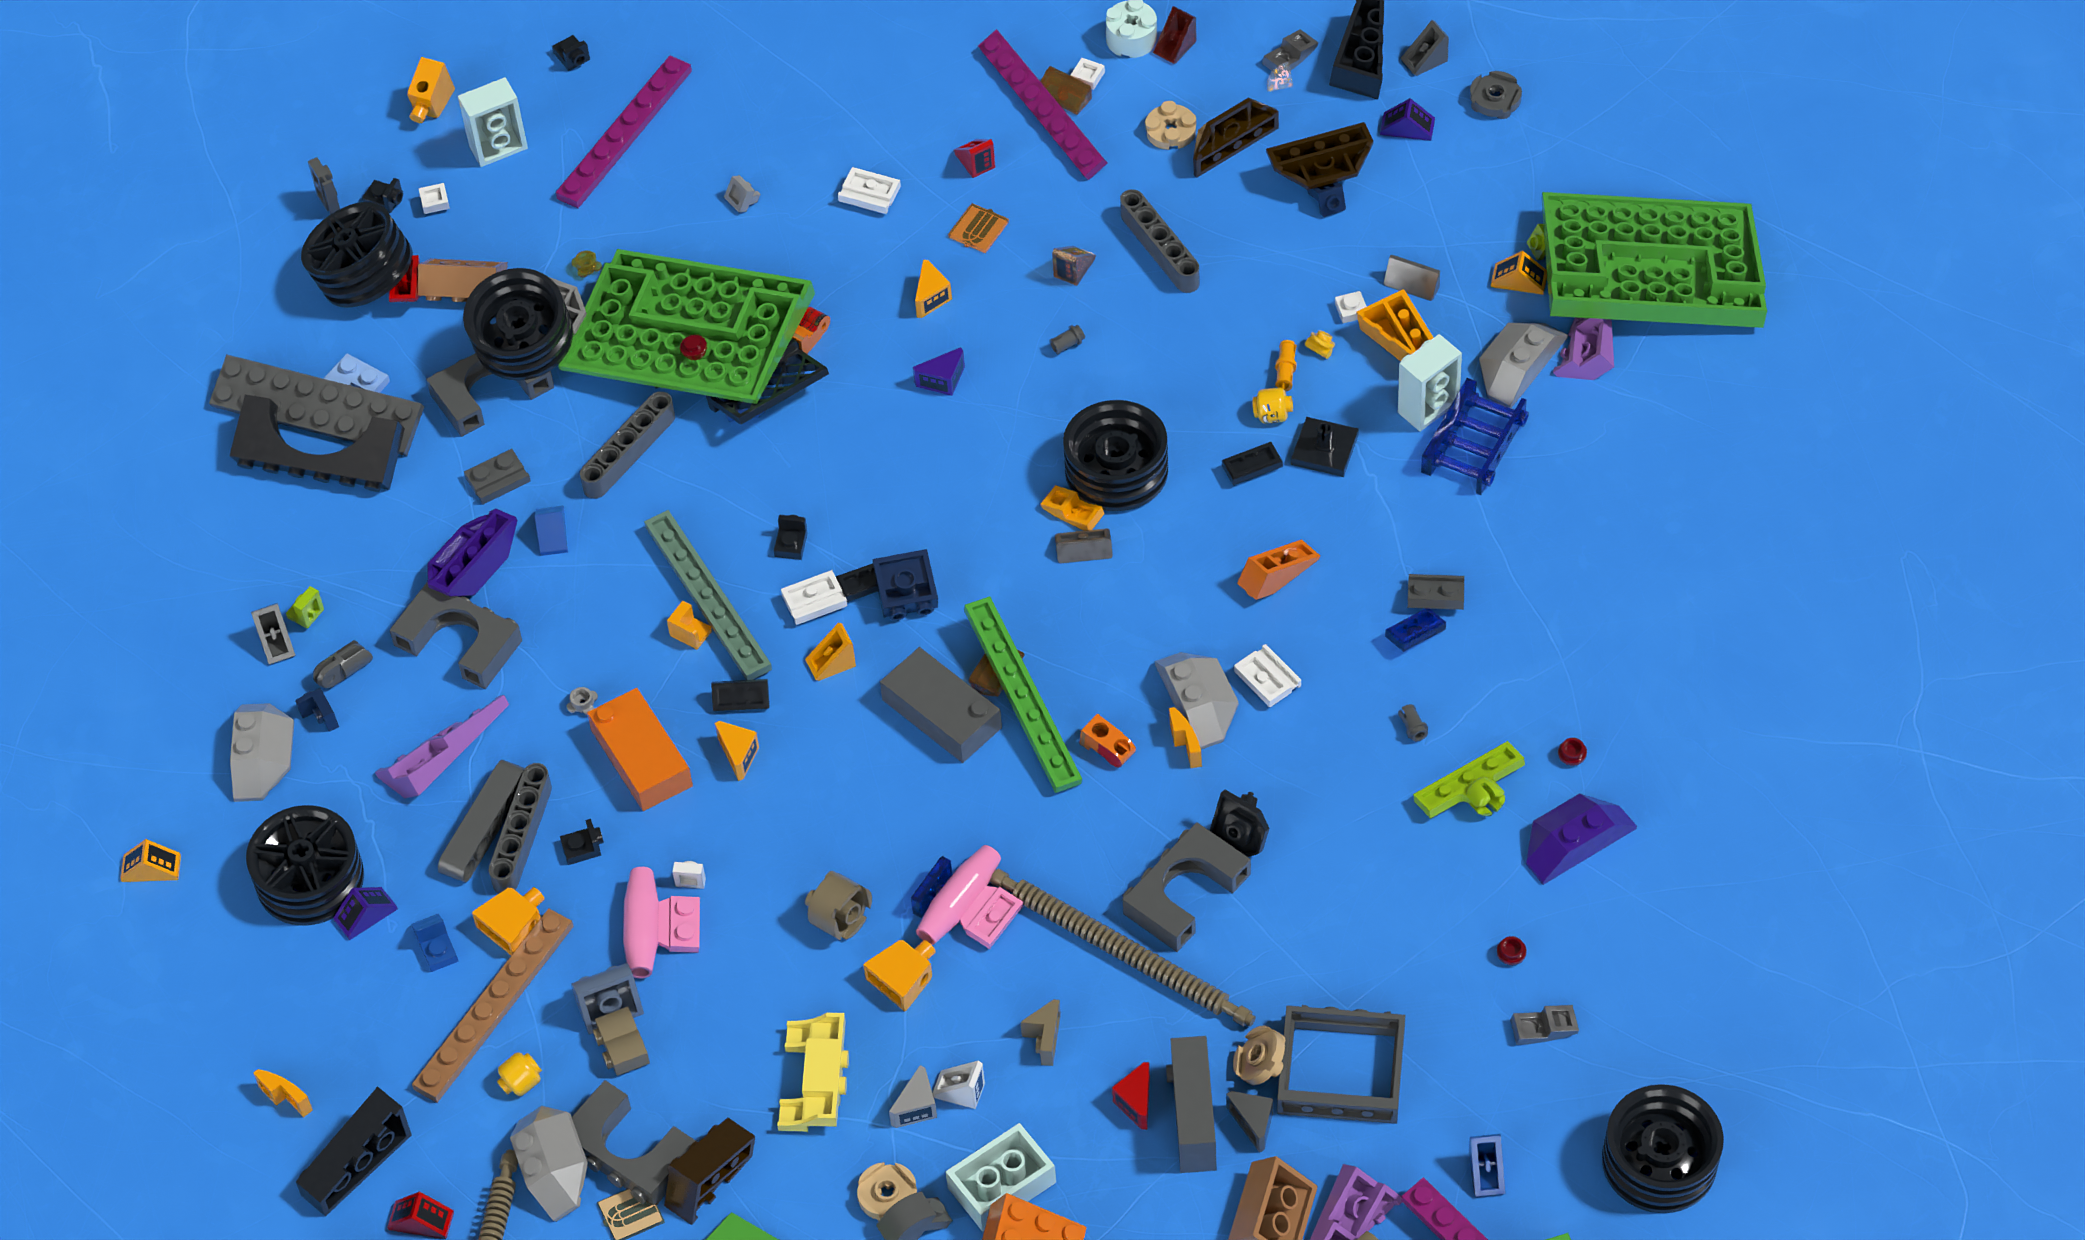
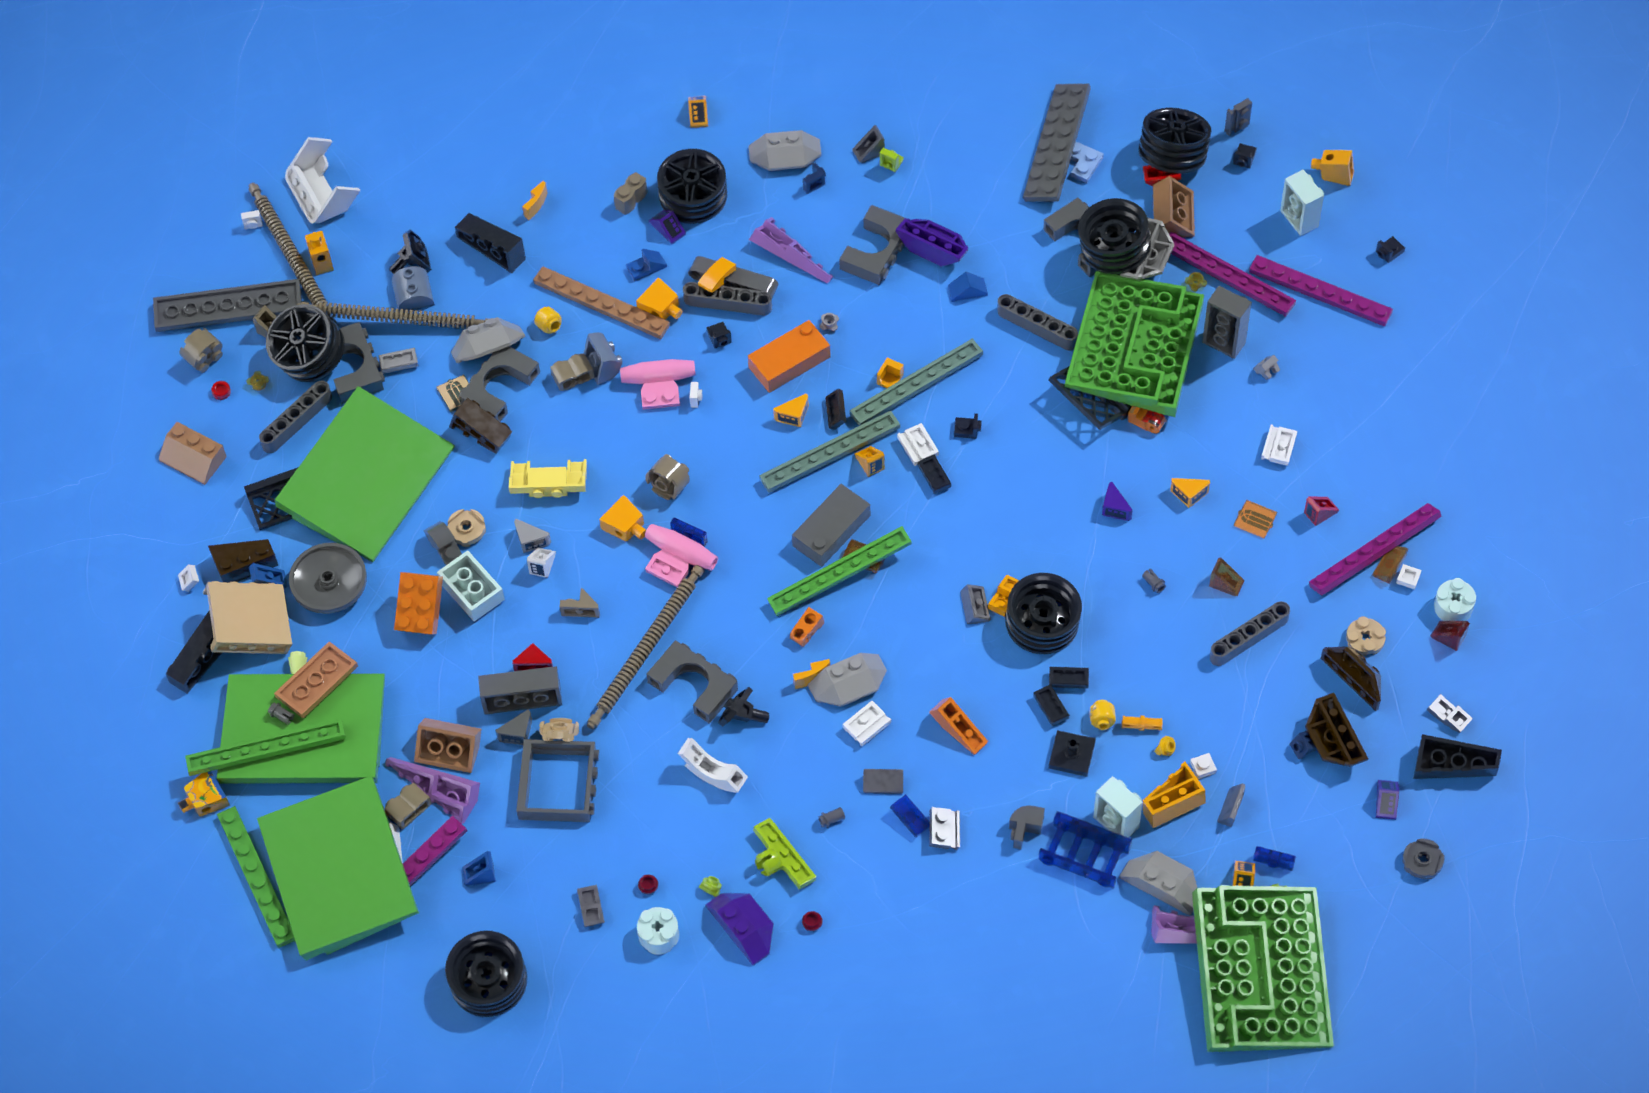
camera: 85 degrees right, 5 degrees up
(298, 955) = (630, 193): none -> dark tan brick
(341, 664) = (849, 185): dark grey arm -> none
(366, 462) = (1018, 117): black arch -> none
(421, 1216) = (451, 284): red slope -> none
(434, 198) = (1243, 184): white plate -> none
(485, 829) = (716, 273): none -> light orange slope
(497, 476) = (1009, 252): dark grey plate -> none
(592, 215) = (1232, 275): none -> magenta plate
(684, 208) = (1226, 322): none -> dark grey brick
(693, 347) = (1107, 342): dark red plate -> none
(812, 706) = (829, 451): none -> sand green plate
(905, 584) = (926, 494): dark blue plate -> none
(1210, 441) = (1069, 677): none -> black plate
(1280, 78) = (1420, 707): clear tile -> none
(1338, 858) = (719, 774): none -> white arch
(1359, 661) = (883, 781): none -> flat silver slope
(1427, 50) = (1460, 808): dark grey slope -> none
(1431, 502) = (1025, 820): none -> dark grey brick
(1493, 240) = (1274, 858): none -> clear blue plate
(1515, 872) = (711, 885): none -> lime plate
(1589, 933) = (658, 919): none -> light aqua brick

